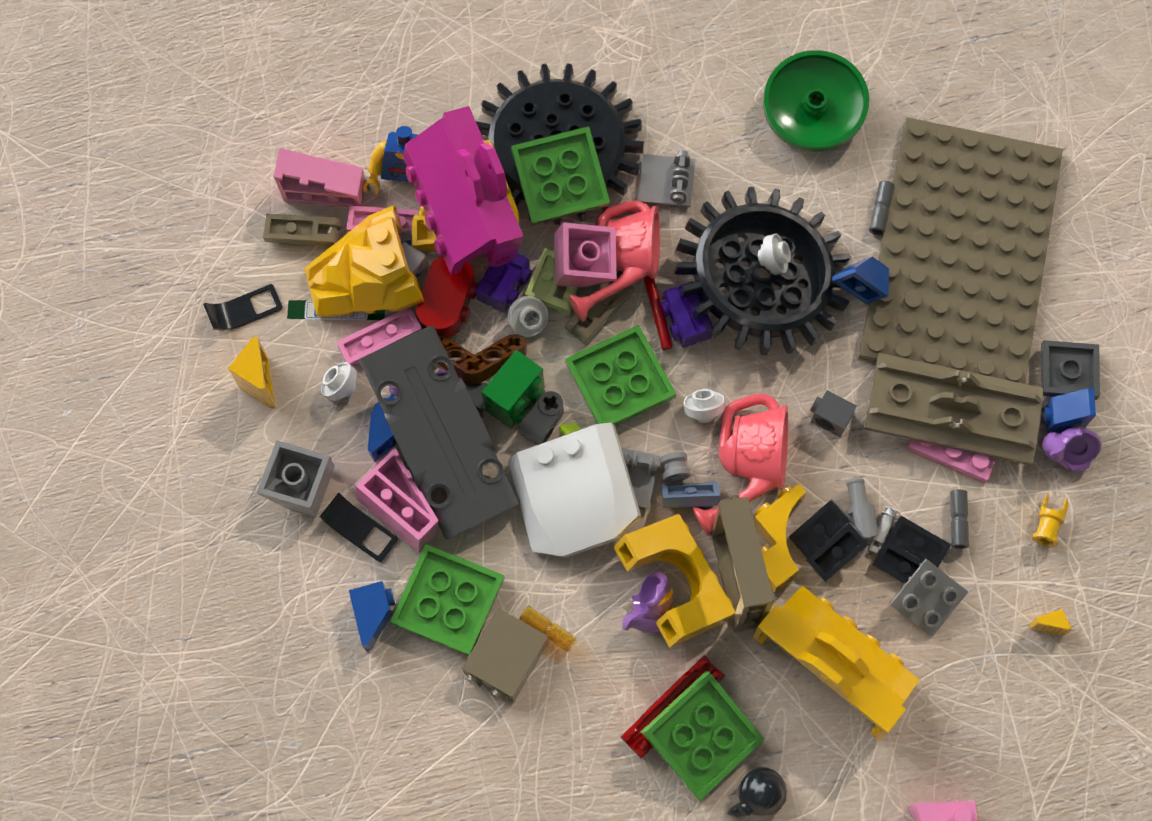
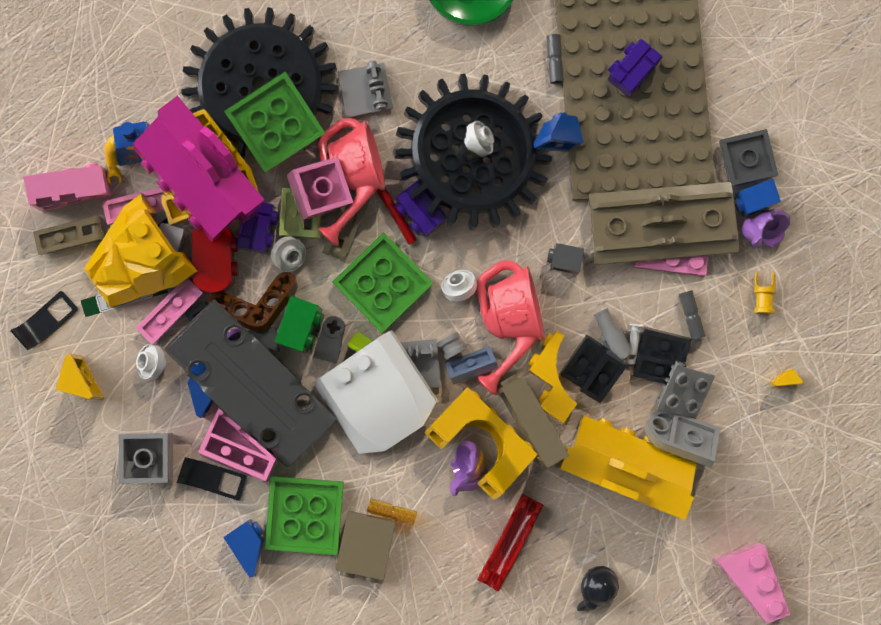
camera: 20 degrees left, 15 degrees up
(702, 735) = (540, 560): bright green plate -> none
(912, 647) = (683, 436): none -> light grey plate
(967, 235) = (634, 68): none -> dark purple brick

